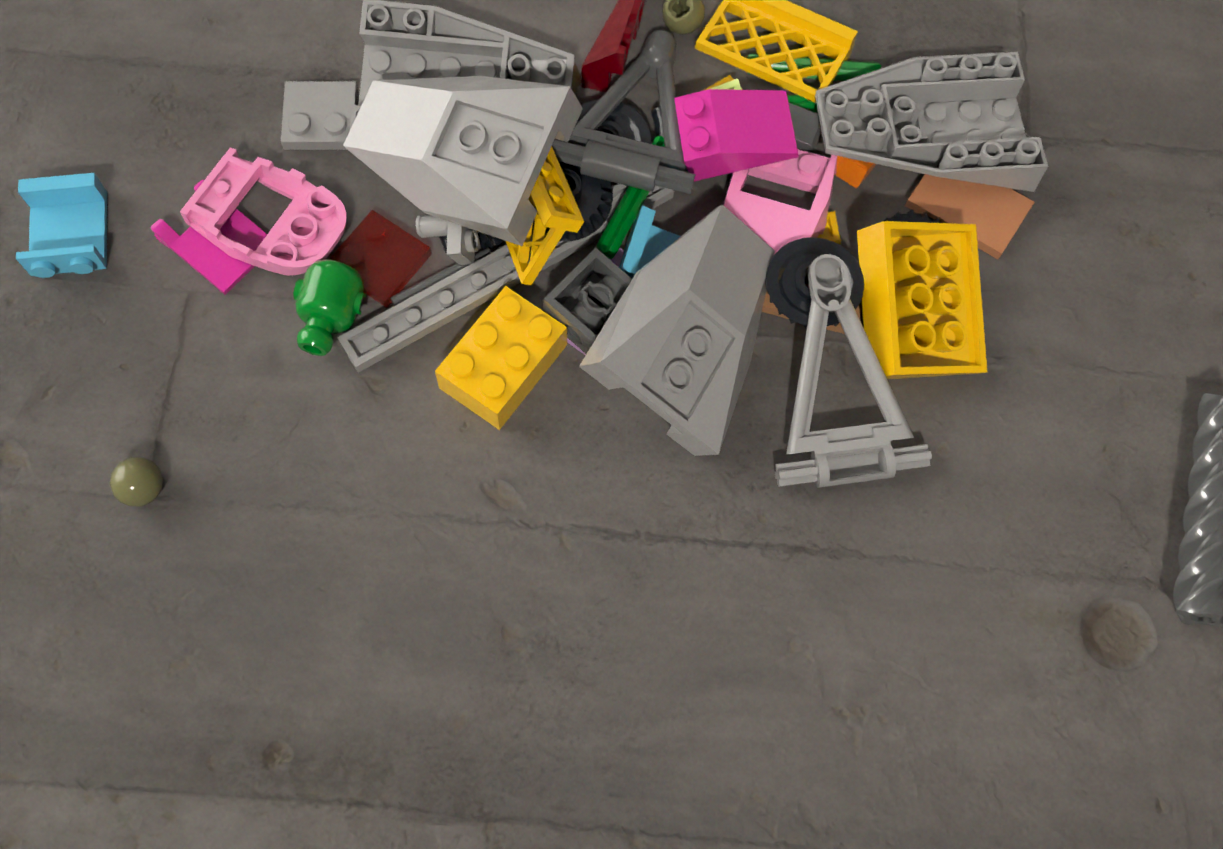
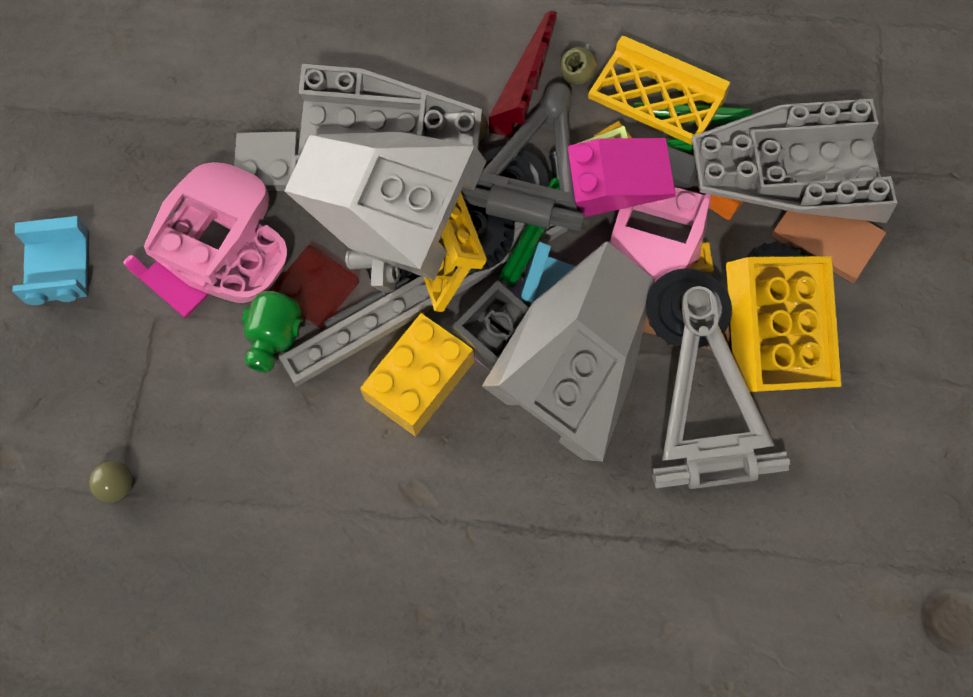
camera: 10 degrees right, 0 degrees up
(271, 144) = (224, 191): none -> bright pink slope

